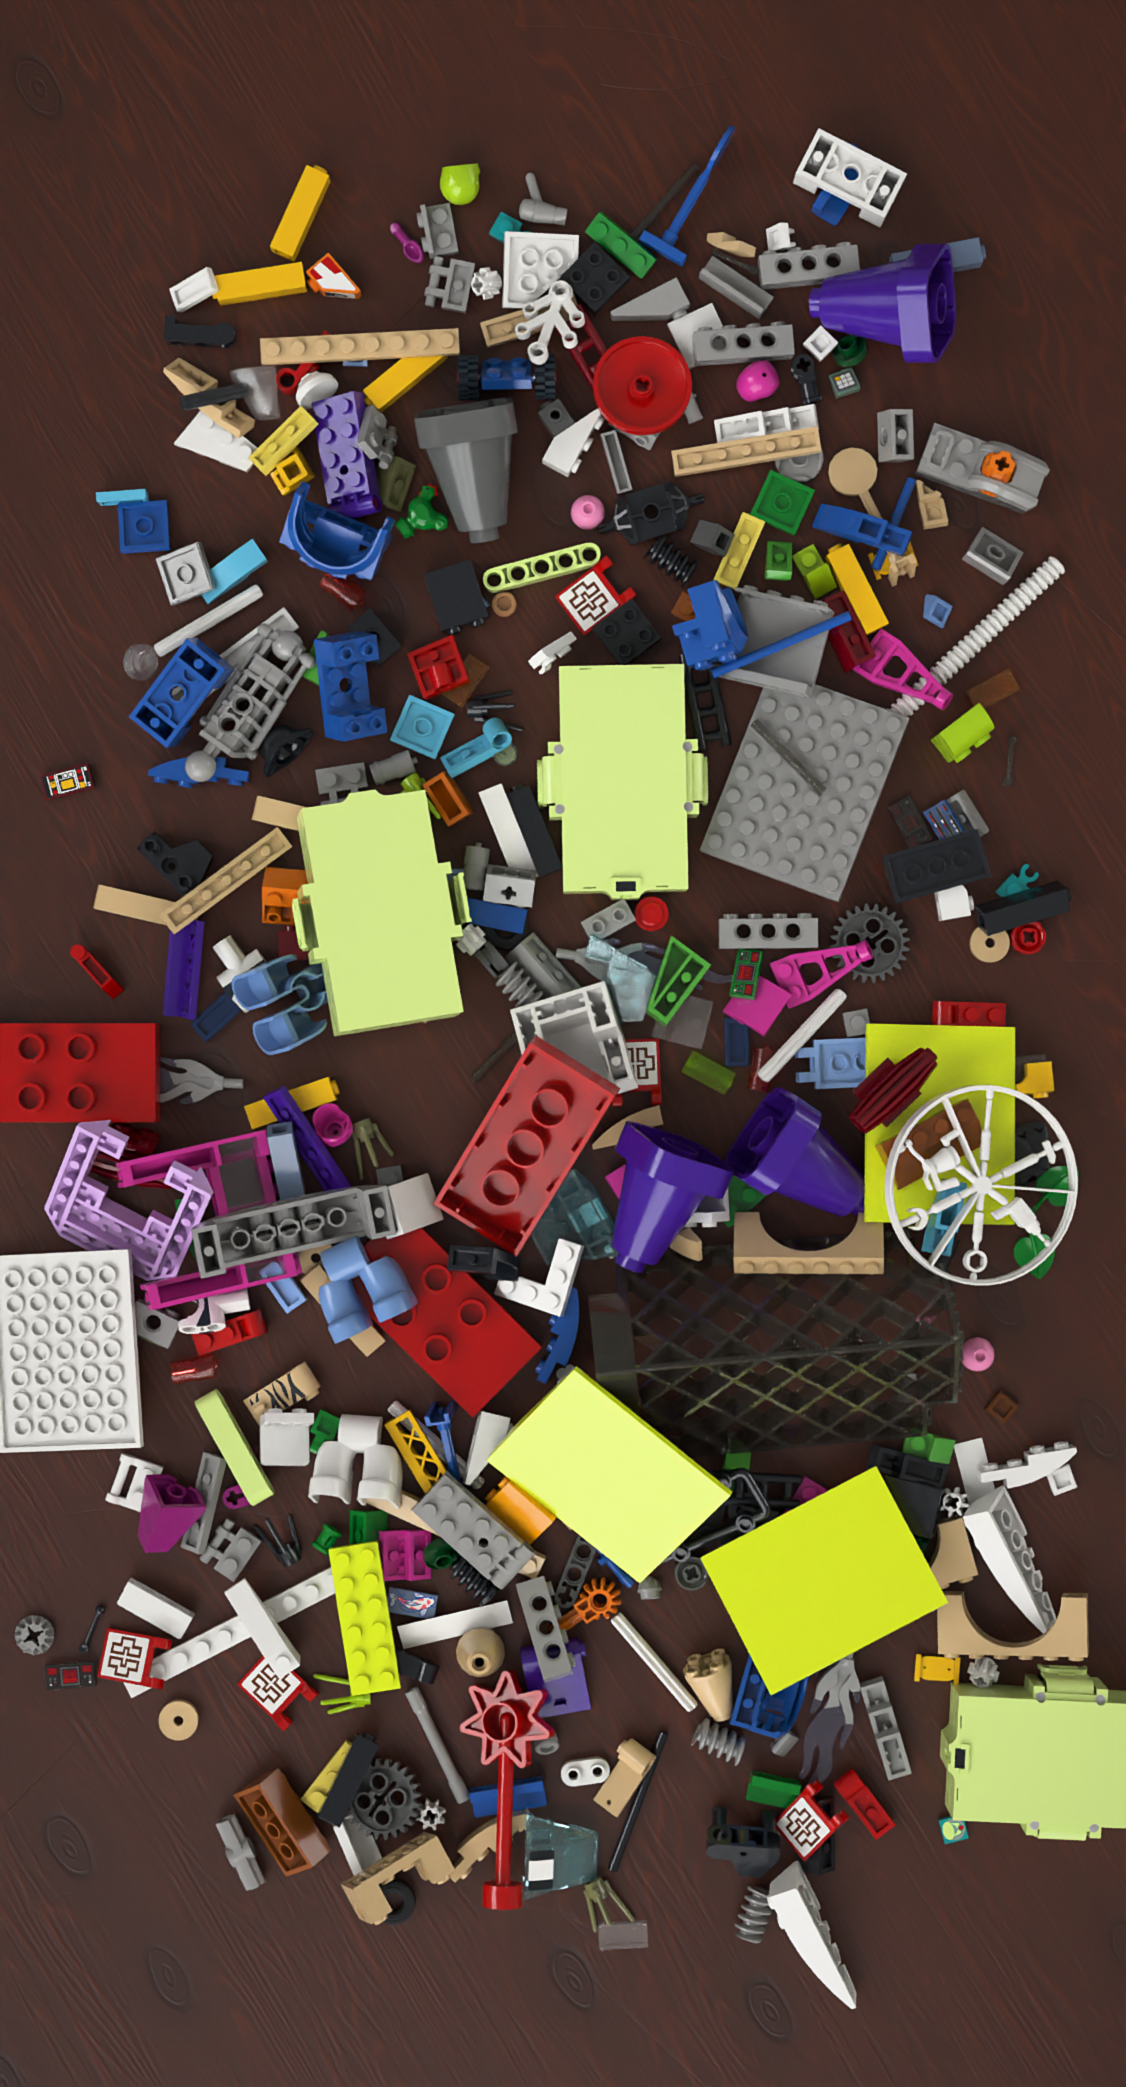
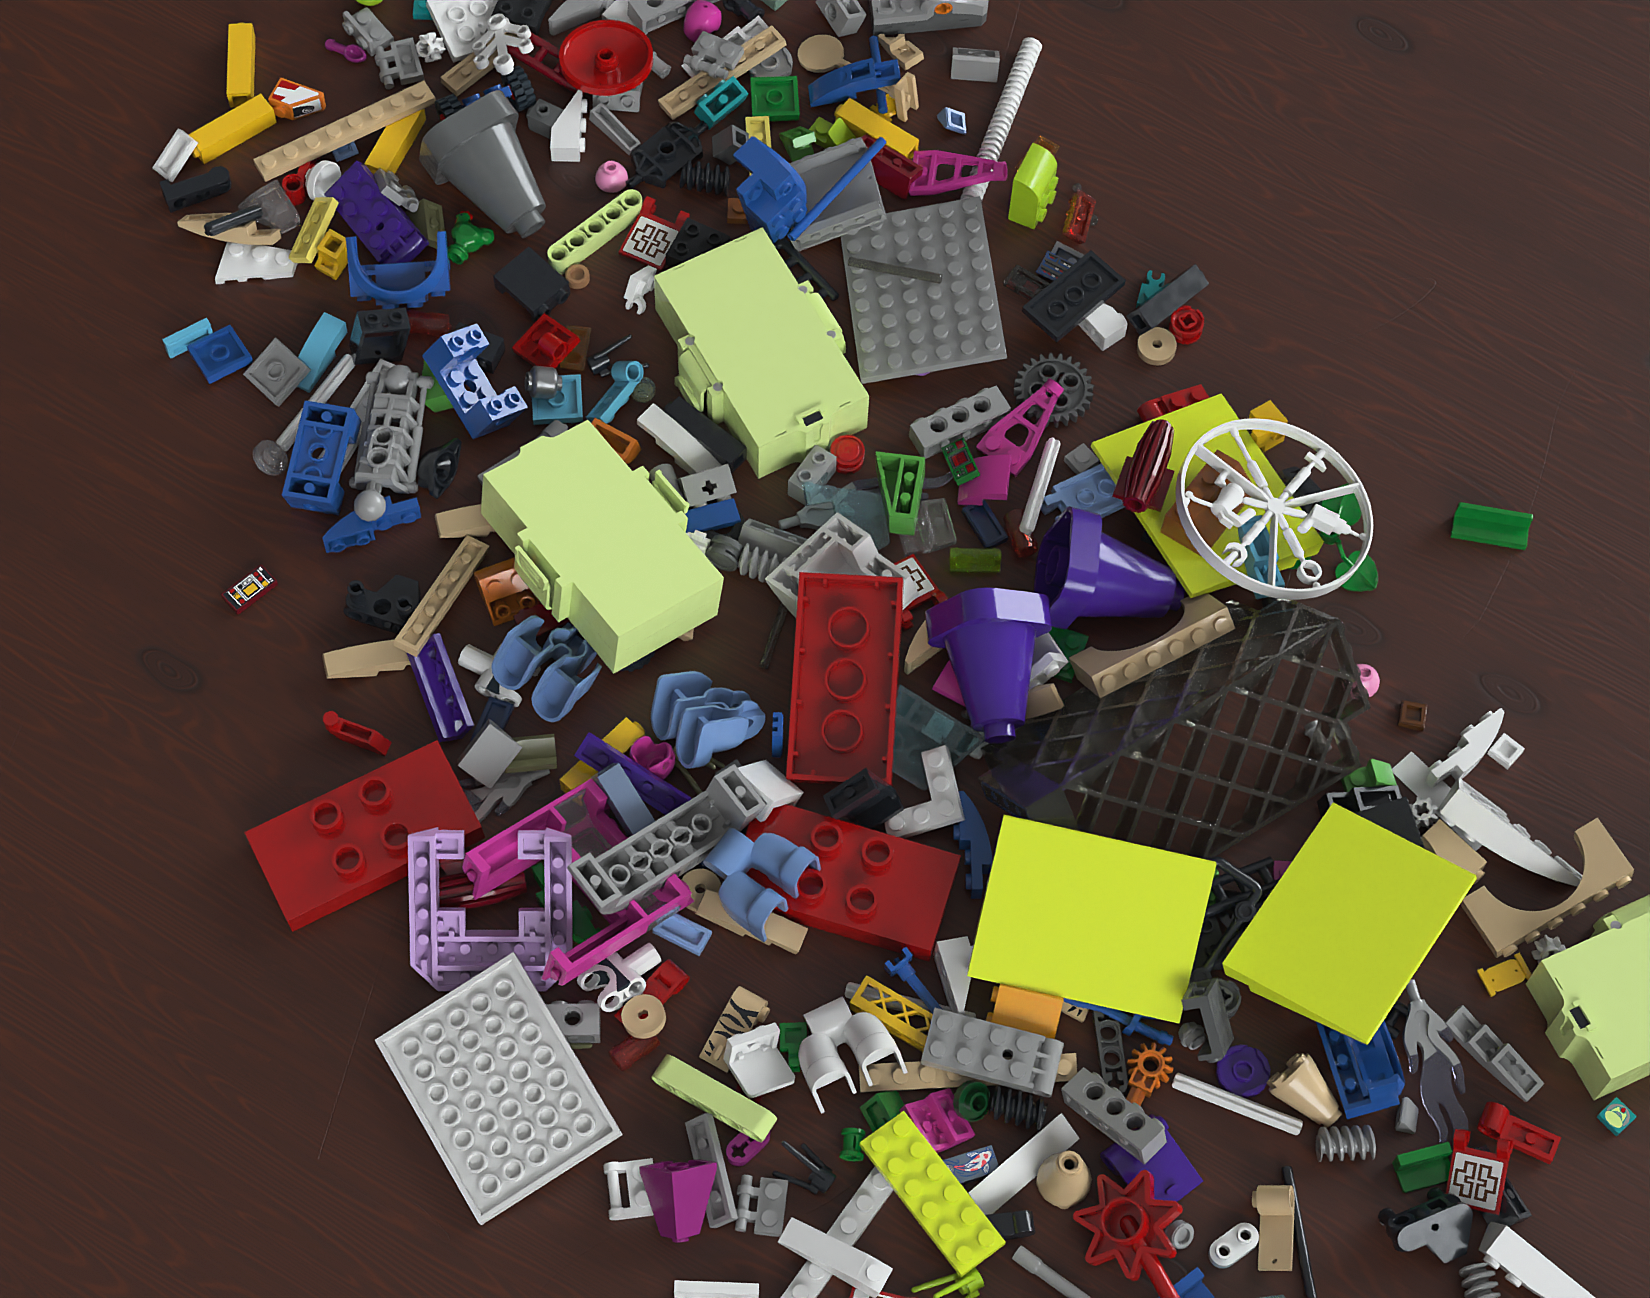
camera: 30 degrees left, 25 degrees down
(194, 1051) = (488, 754): none -> light grey slope
(221, 1353) = (645, 1027): none -> tan piece
(231, 1067) = (536, 754): none -> olive panel
(298, 593) = (390, 347): none -> black window
(389, 1137) = (702, 717): none -> medium blue piece
(414, 711) = (543, 382): none -> flat silver head
(447, 1158) = (777, 734): none -> blue tile
(669, 1584) = (1209, 998): none -> dark grey panel
(675, 1637) = (1243, 1071): none -> dark purple tile
(726, 486) = (721, 102): none -> teal brick
(751, 428) = (716, 50): none -> light grey plate
(993, 777) = (1079, 217): none -> clear red plate

